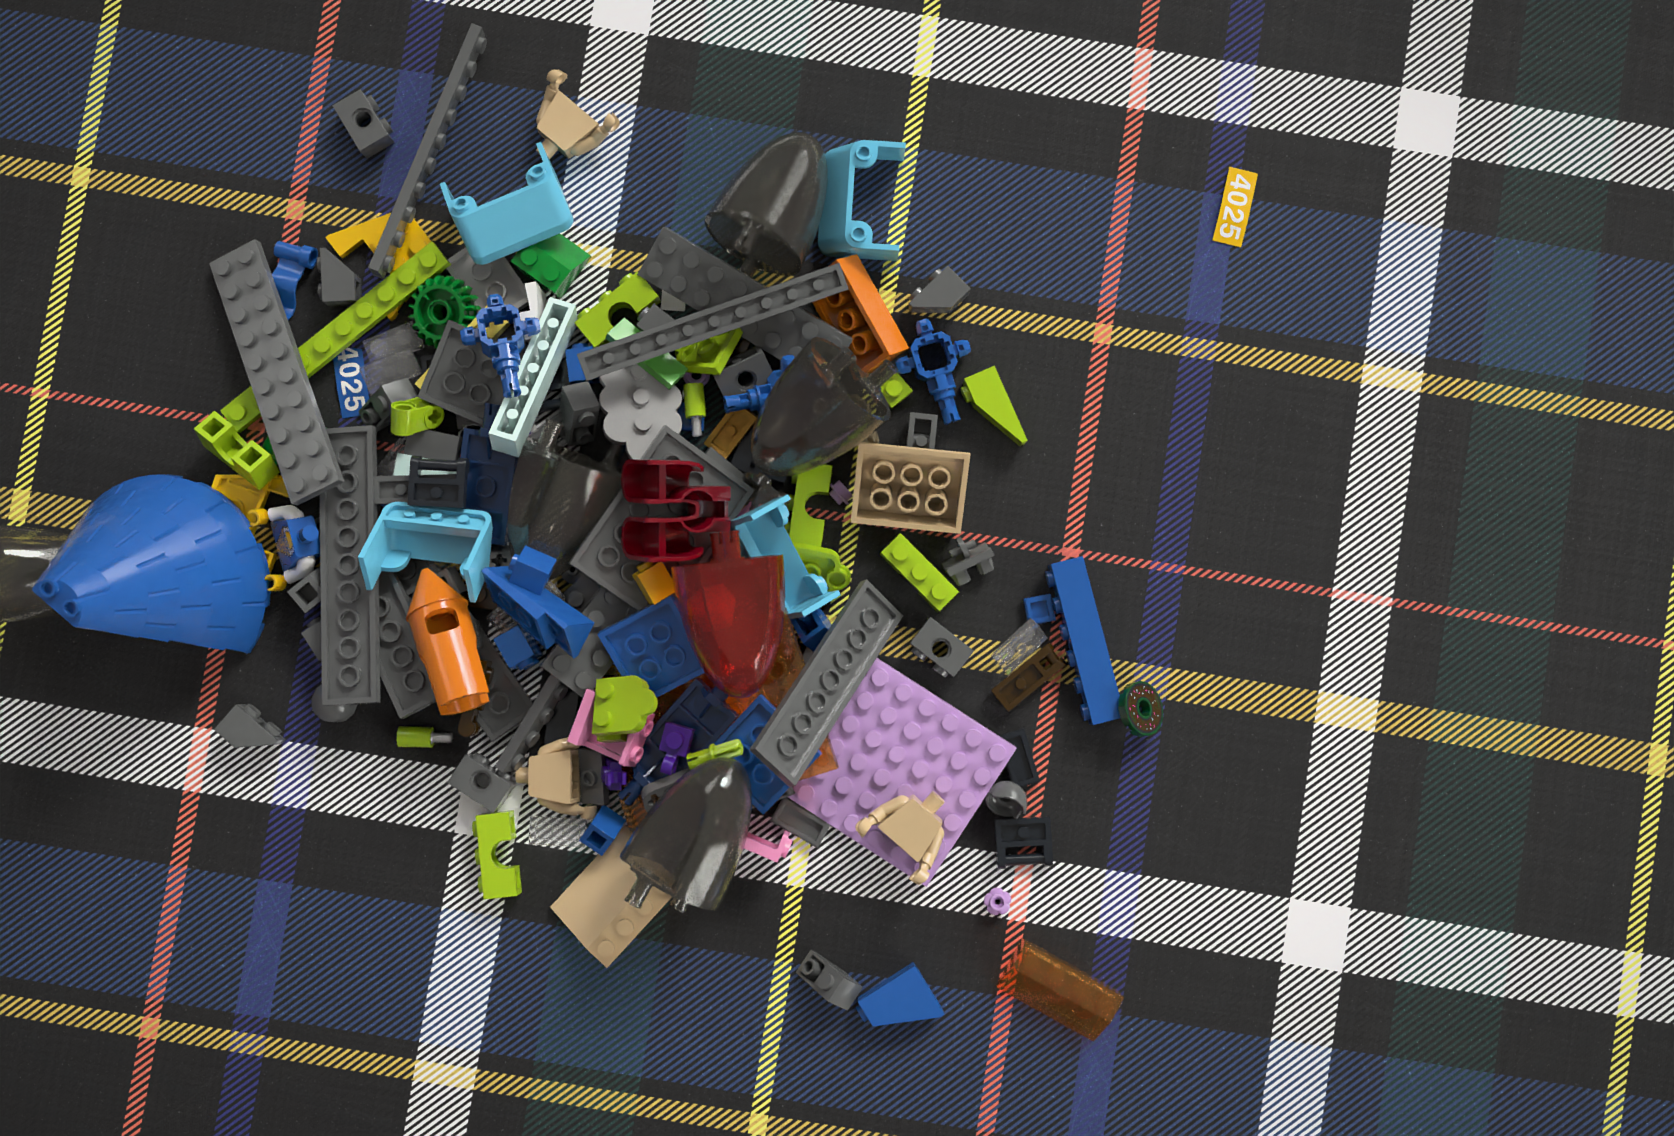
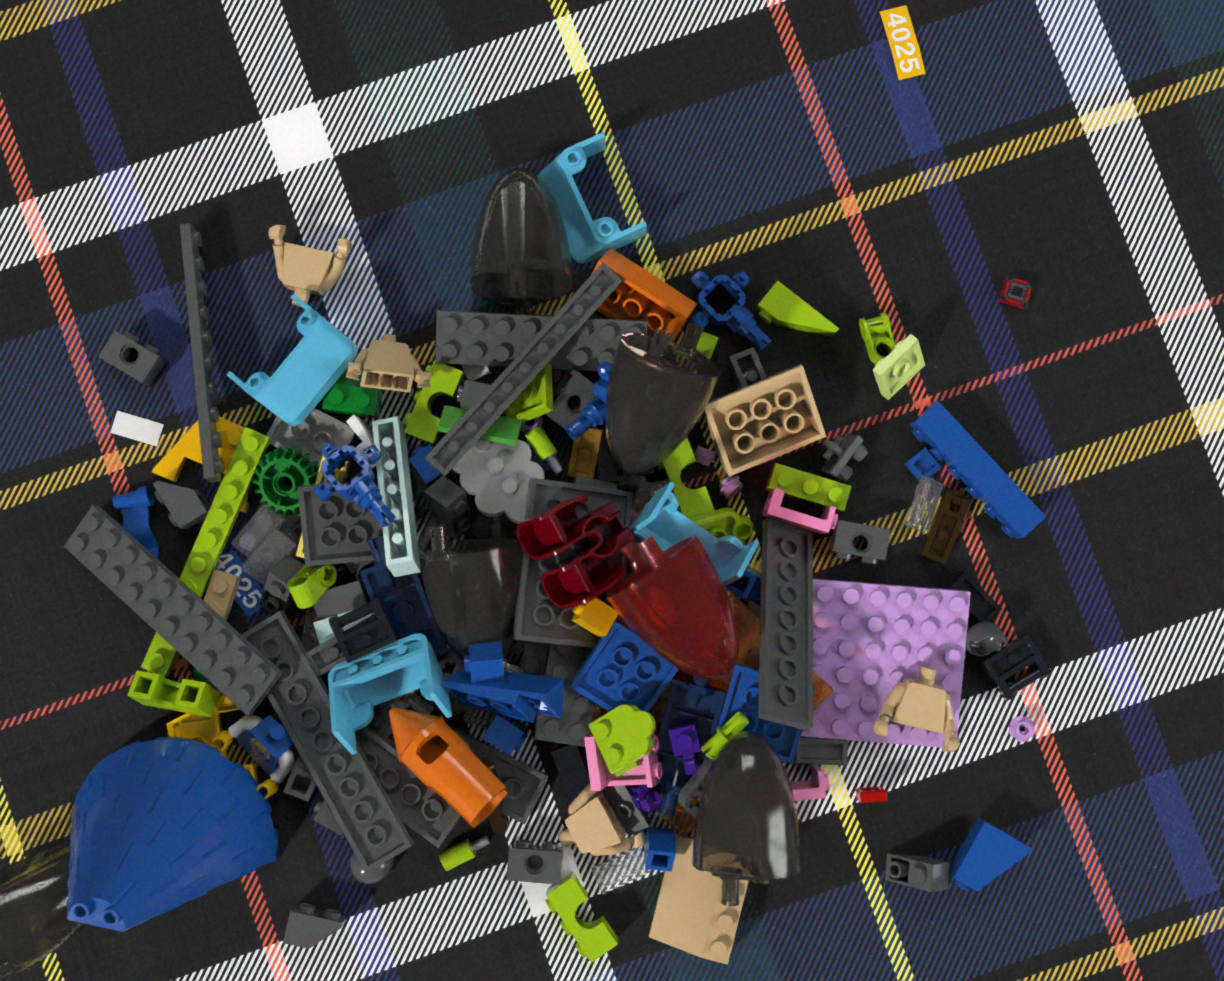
camera: 25 degrees left, 0 degrees up
(330, 382) = (222, 592): none -> tan plate
(333, 190) = (137, 428): none -> white sticker
(528, 731) = (551, 799): dark grey plate -> none
(591, 254) = (388, 366): none -> tan torso
(824, 886) = (871, 794): none -> red tile
(849, 534) = (730, 486): none -> lavender plate
(875, 577) = (818, 525): none -> bright pink panel
(941, 294) = (699, 244): dark grey slope -> none
(1059, 990) = (1114, 774): clear orange slope -> none
(1061, 464) = (877, 333): none -> lime piece
(1063, 505) = (899, 366): none -> yellowish green plate
(1150, 702) = (1052, 491): tile -> none
(1213, 495) = (1016, 292): none -> tile

